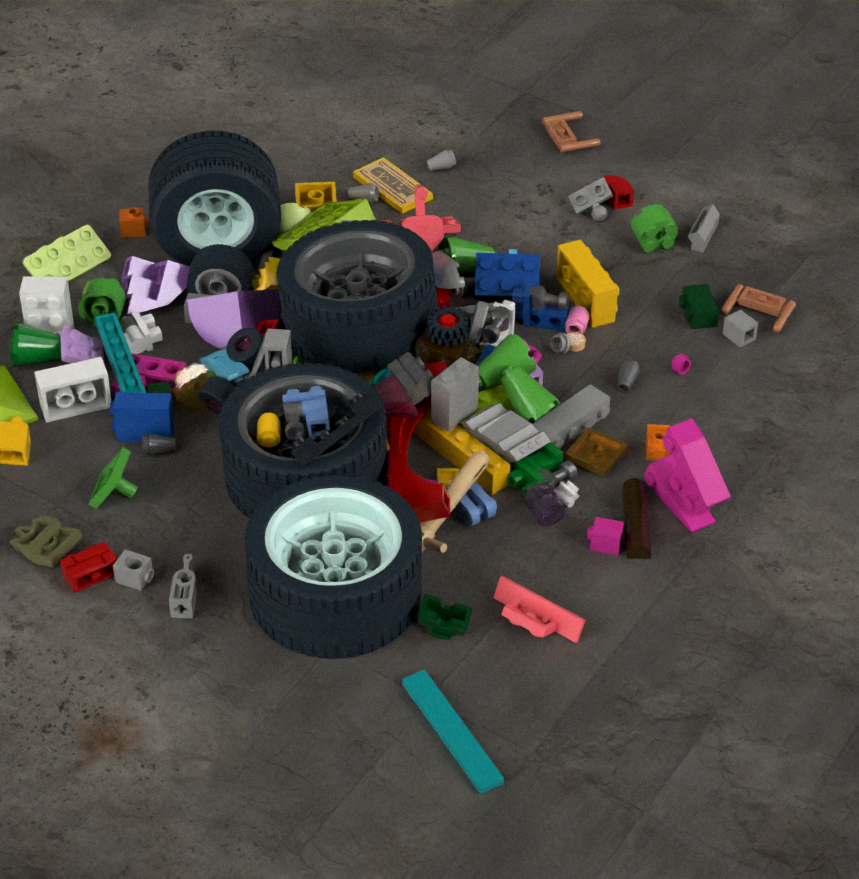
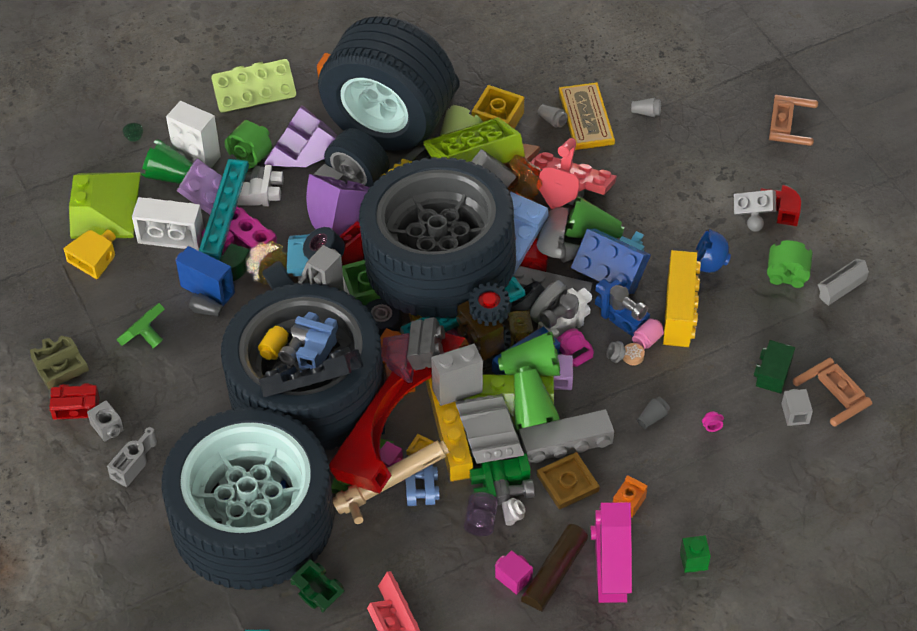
camera: 30 degrees right, 10 degrees up
(587, 234) = (713, 251): none -> blue cylinder
(745, 461) = (695, 554): none -> green brick

